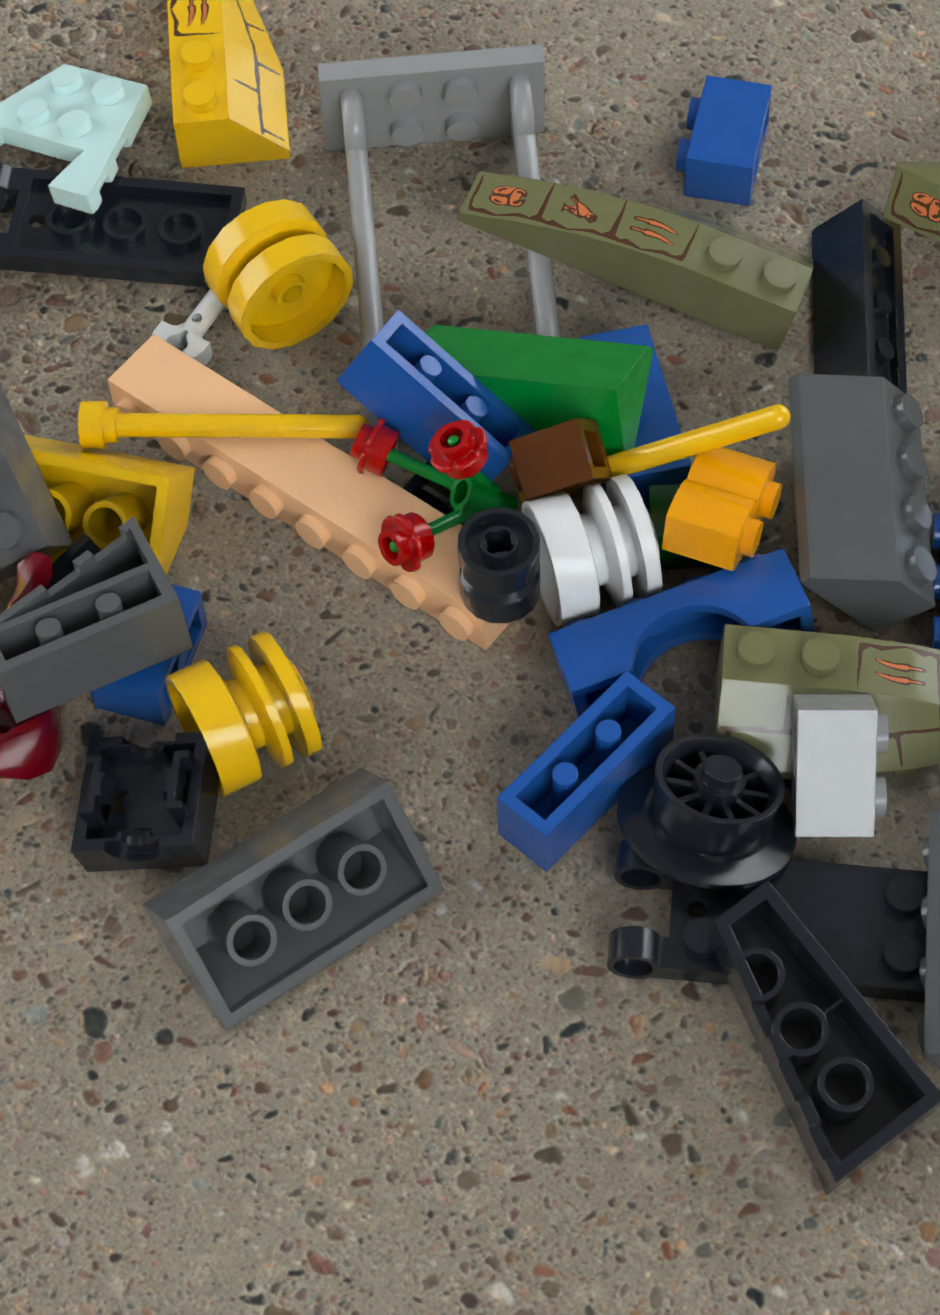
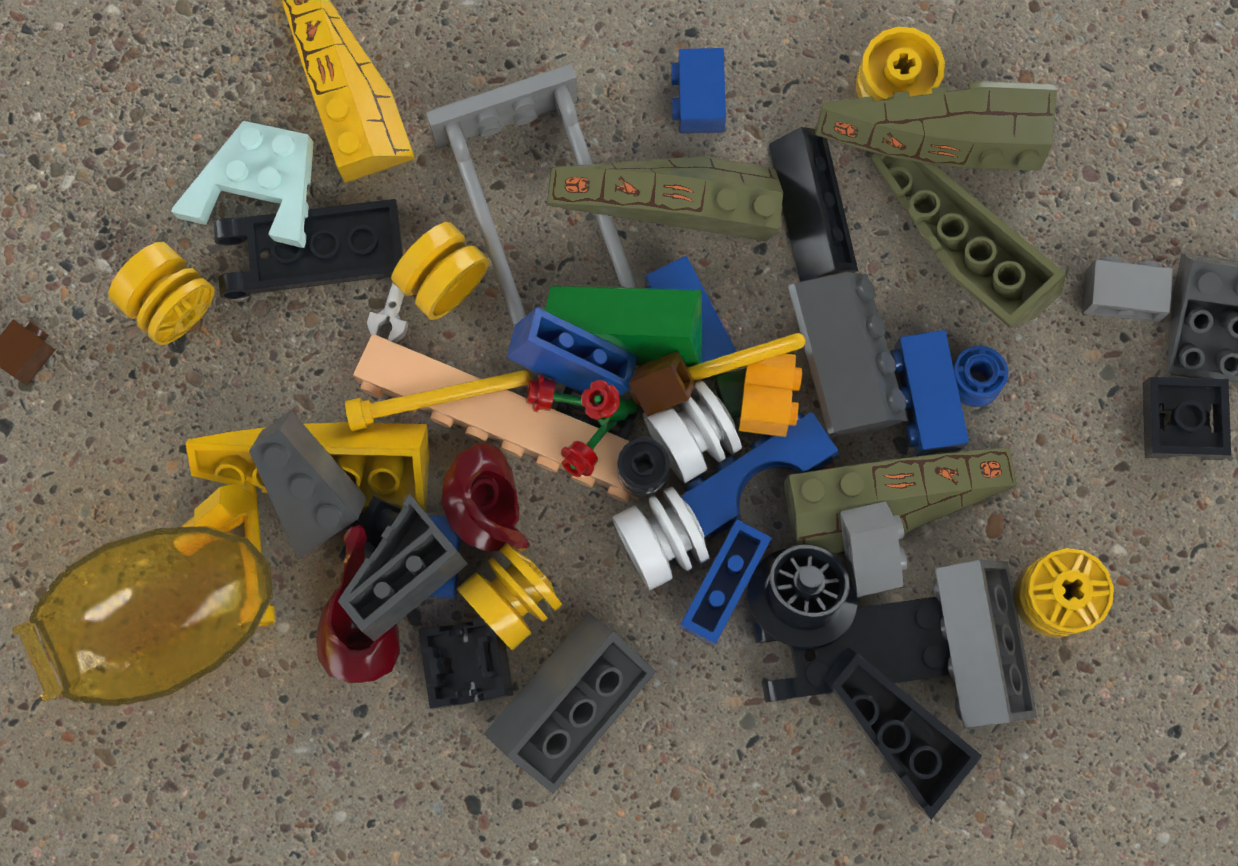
camera: 15 degrees left, 20 degrees up
(245, 572) = (482, 499): none -> dark red hat
(502, 681) = (661, 538): none -> white wheel

